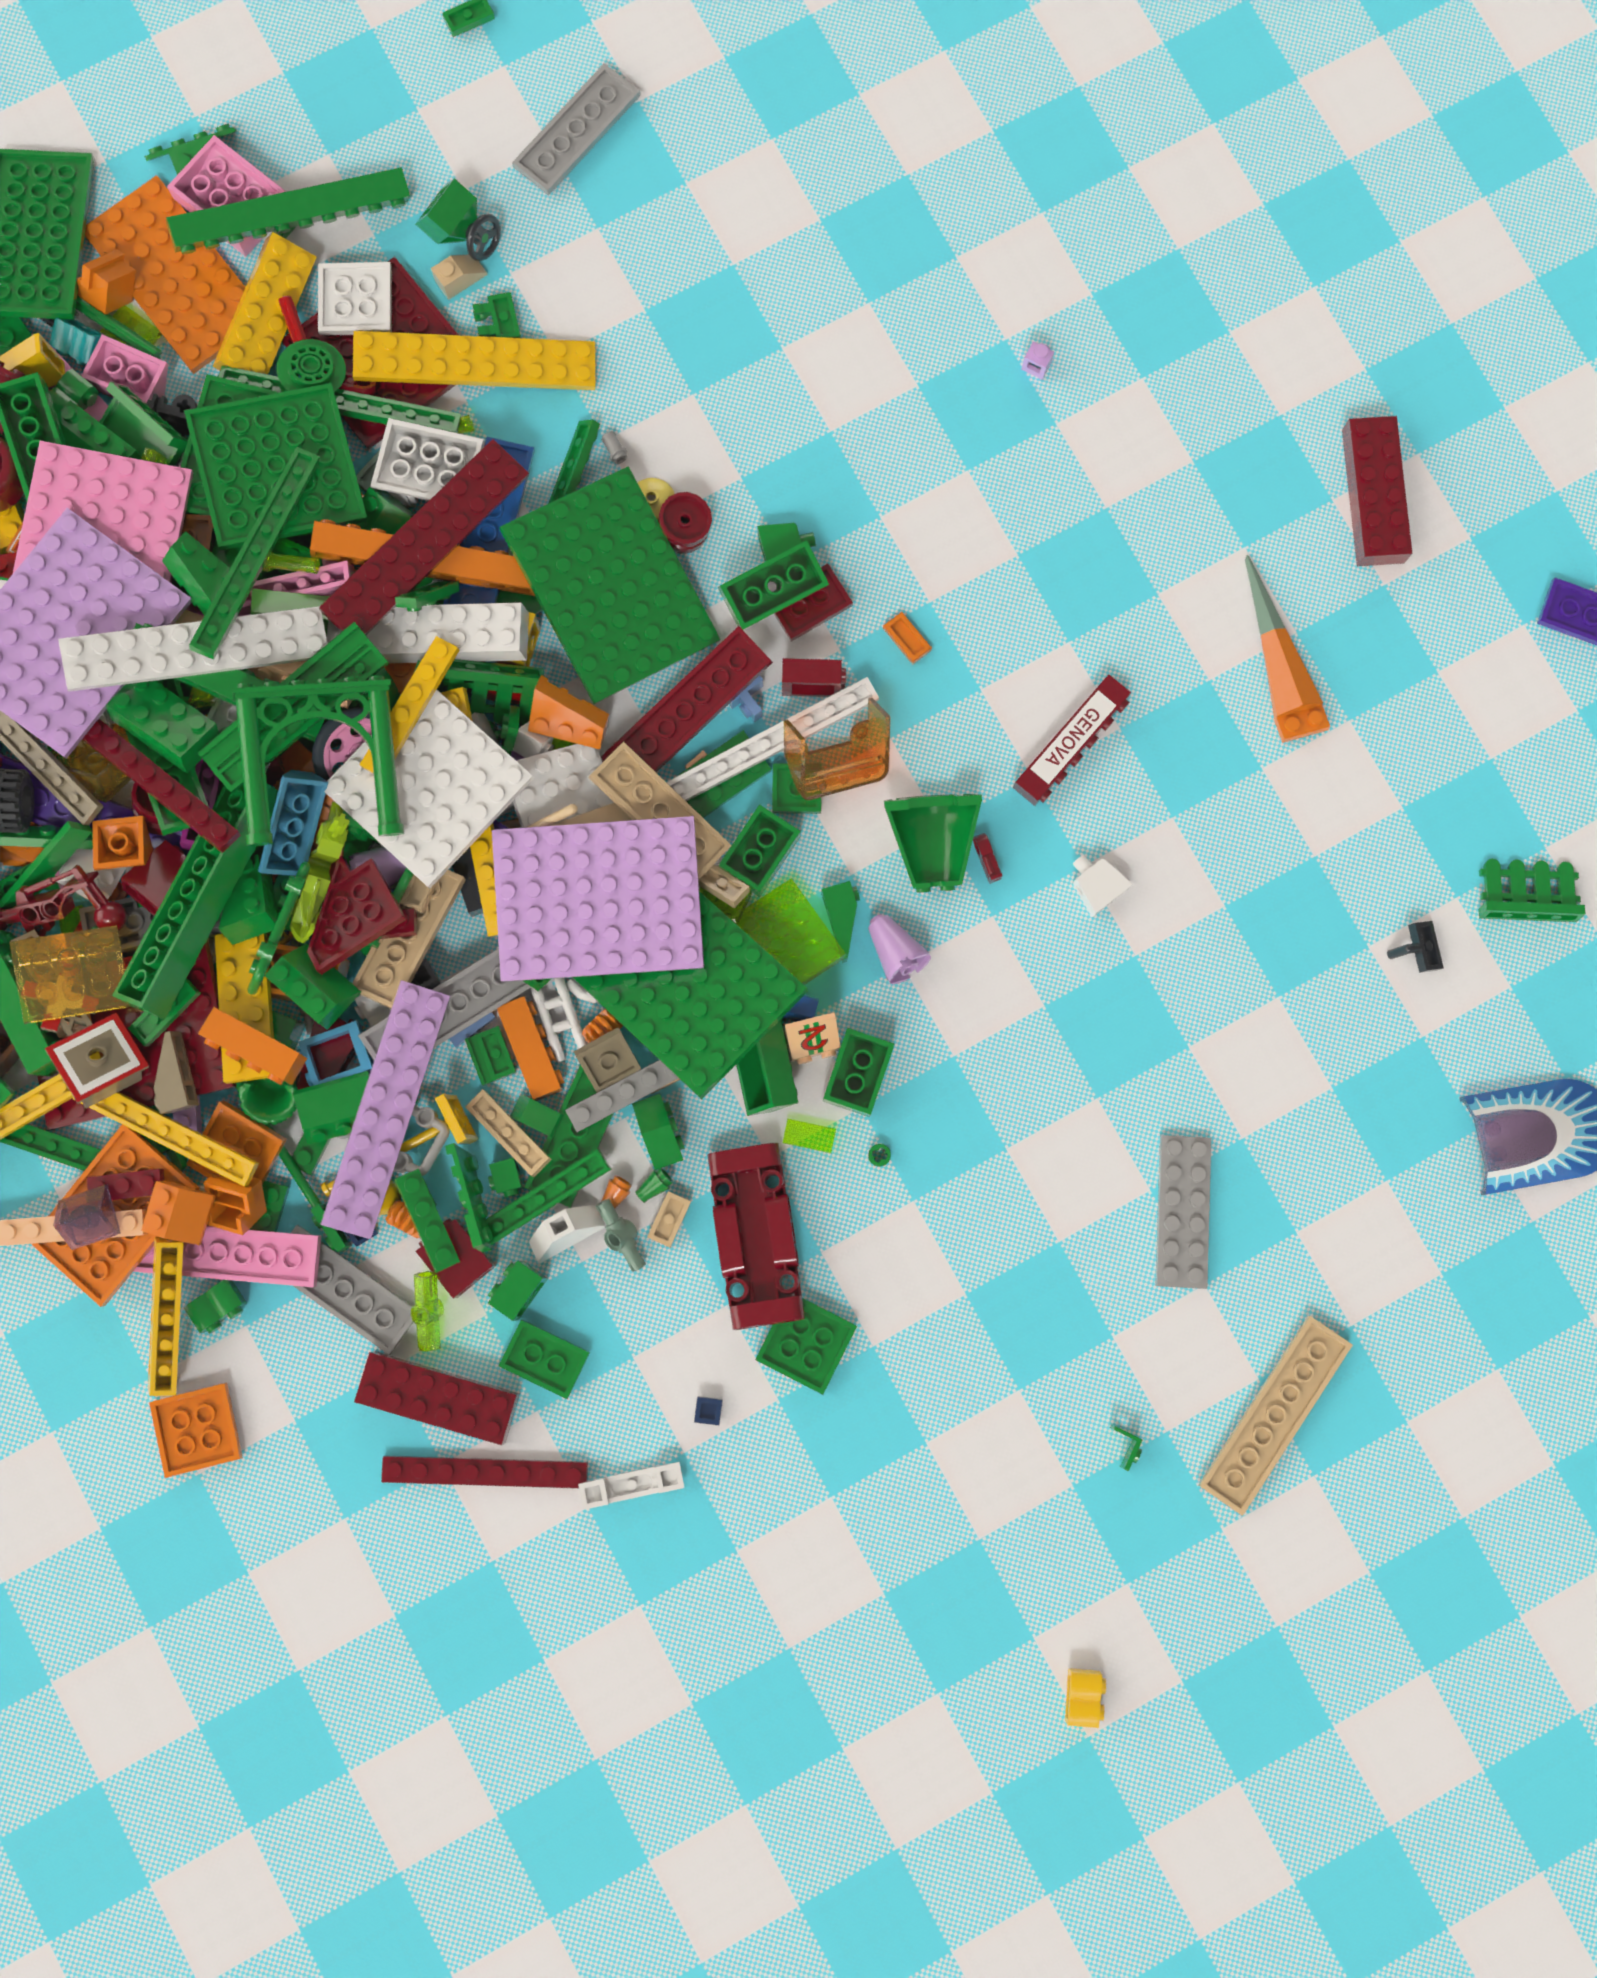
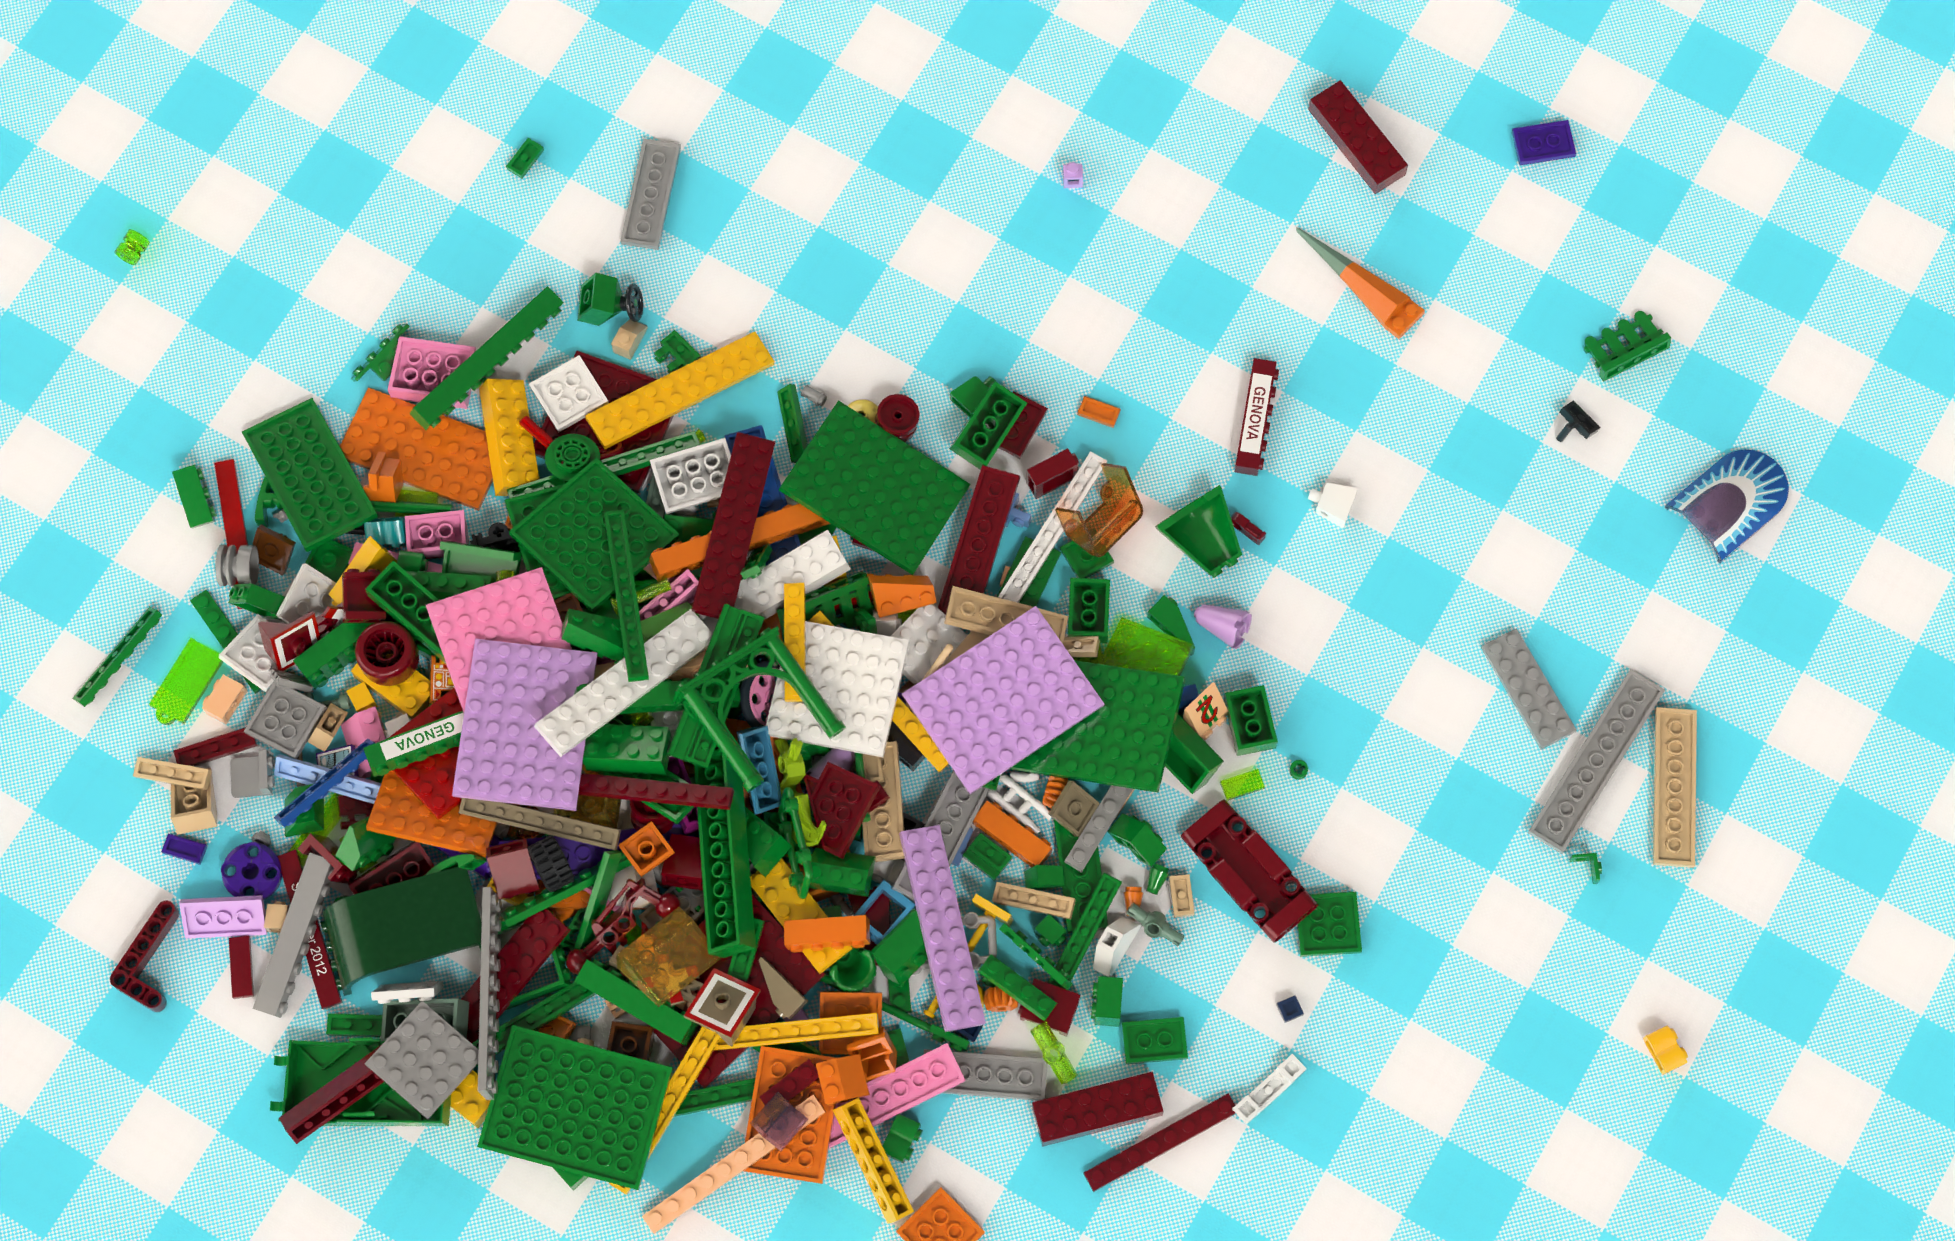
camera: 25 degrees left, 10 degrees down
(1207, 1336) = (1596, 761): none -> light grey plate

